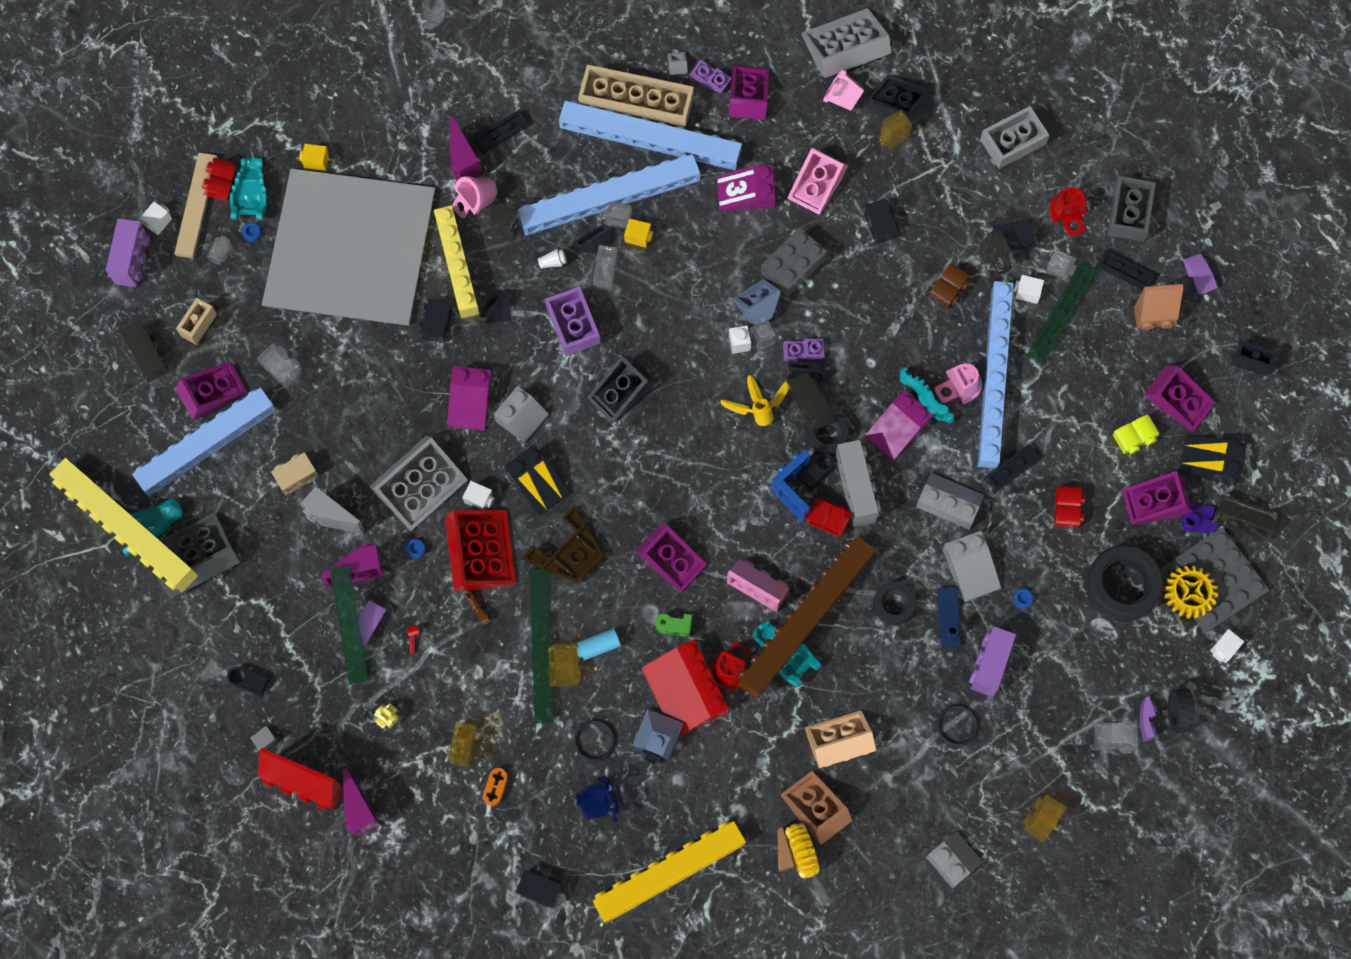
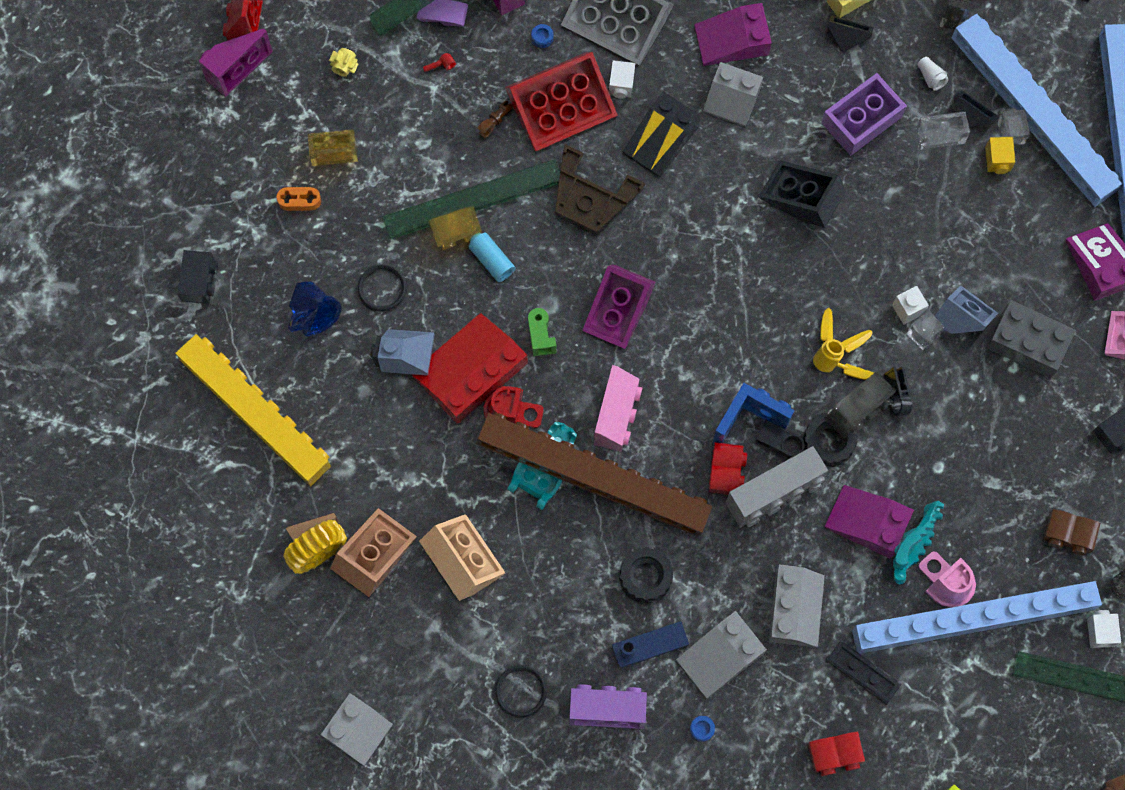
camera: 70 degrees right, 0 degrees up
(803, 350) = (925, 384): medium lavender slope -> none

